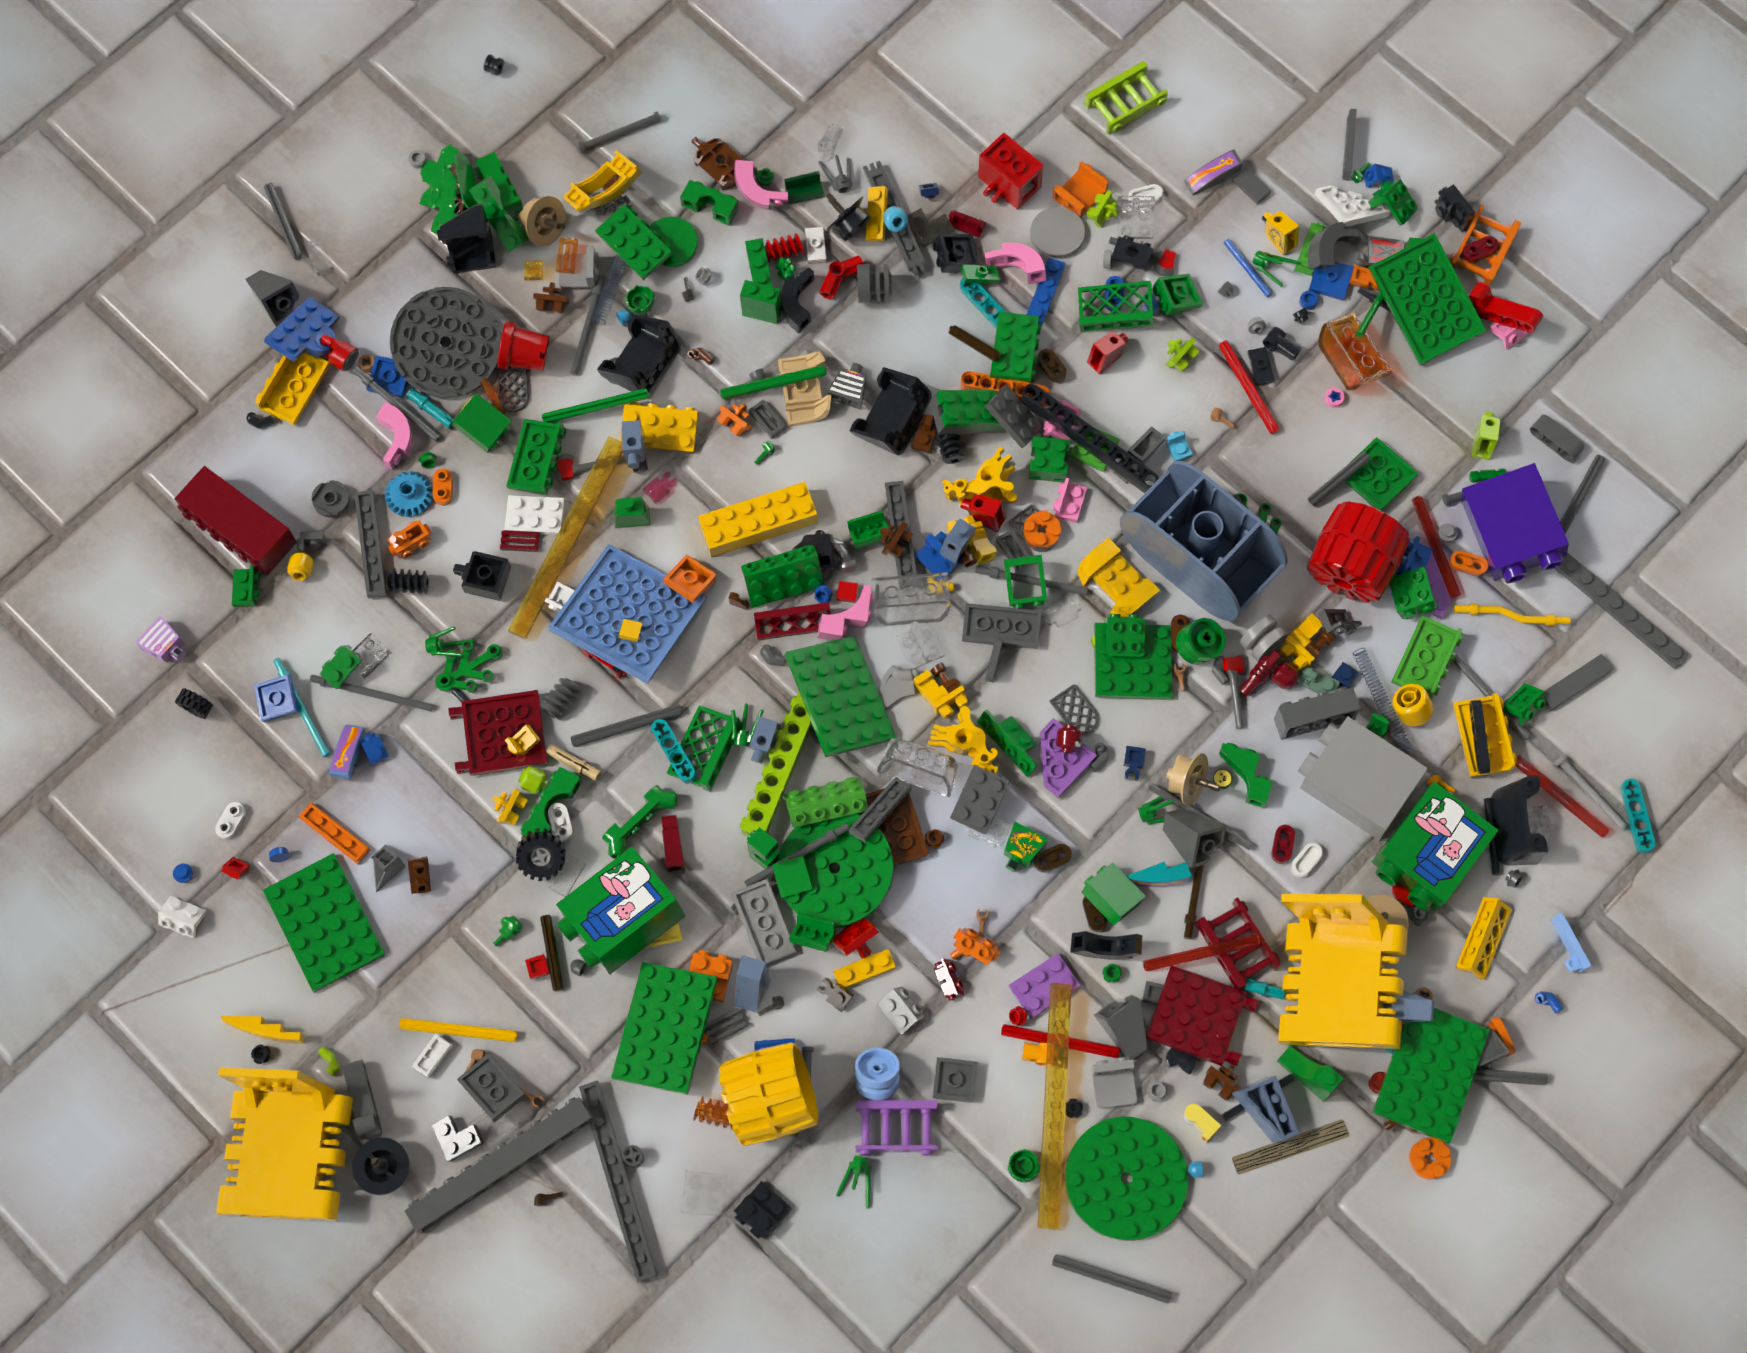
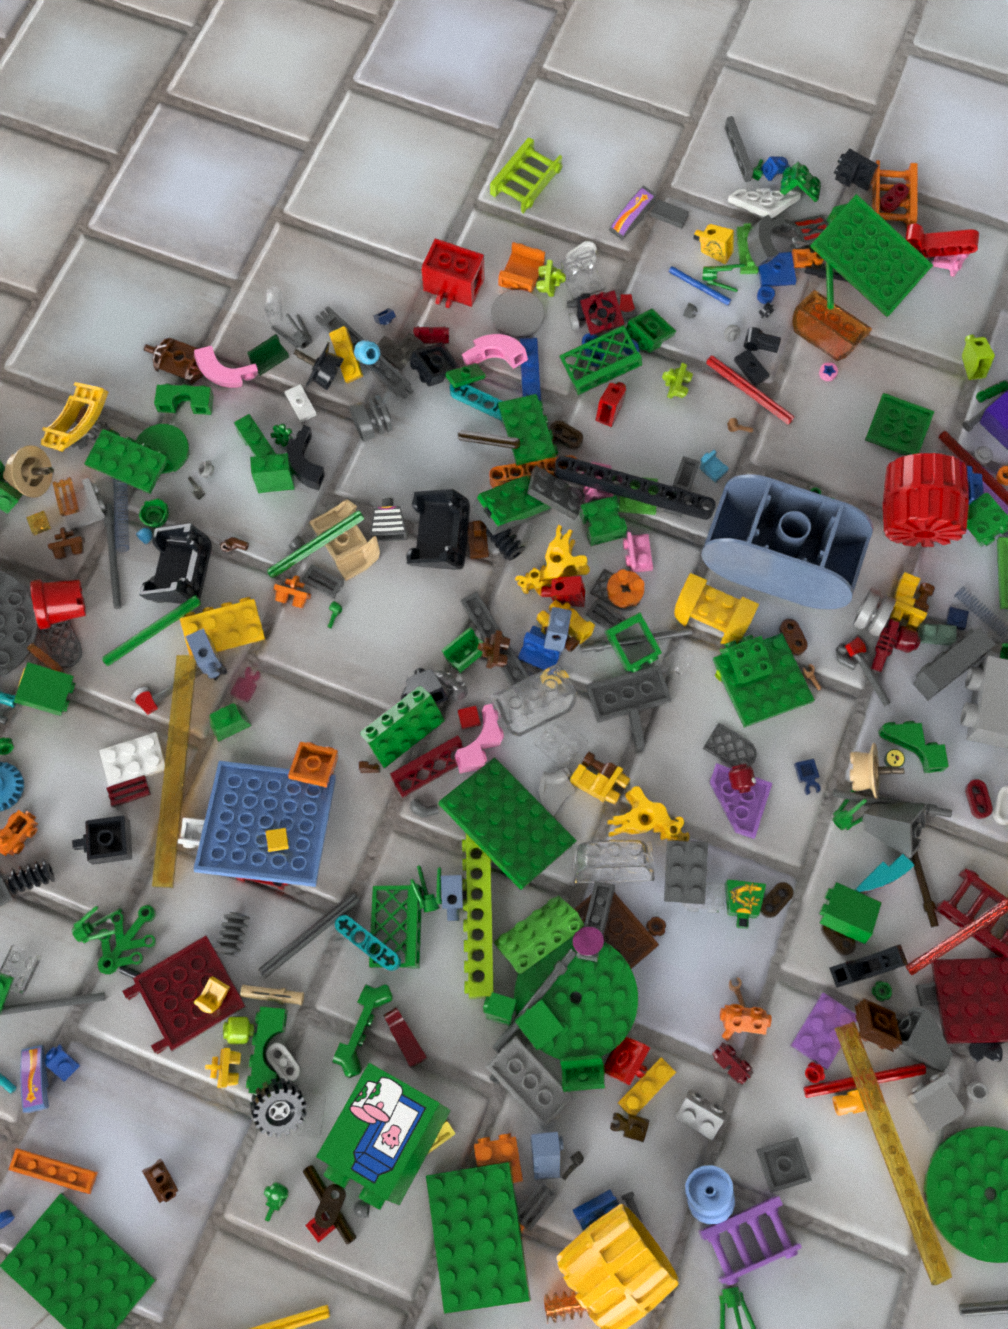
camera: 25 degrees left, 0 degrees up
(386, 866) = (120, 1183): dark grey slope -> none
(442, 485) = (29, 765): orange plate -> none
(536, 456) = (112, 702): green bracket -> none
(552, 952) = (330, 1205): none -> dark brown plate
(618, 132) = (70, 365): dark grey bar -> none
(758, 519) = (354, 680): yellow brick -> none
(765, 180) = (227, 361): green plate -> none
(783, 247) = (272, 415): red piece -> none
(820, 597) = (445, 732): blue plate -> none
(833, 281) = (331, 430): red piece -> none
(864, 821) = (588, 941): none -> flat silver sticker
(1011, 739) = (686, 800): green bracket -> none
(1023, 1166) = (890, 1226): green hair -> none
(1078, 1108) = (913, 1148): black plate -> none
(1090, 996) = (877, 1025): none -> reddish brown brick
(1102, 757) = (777, 783): dark grey arm -> none
(1125, 246) = (609, 296): none -> dark red piece
(1200, 641) = (819, 637): green wheel -> none
(1338, 621) = (930, 572): dark grey bracket -> none
(1339, 478) = (869, 441): dark grey axle -> none

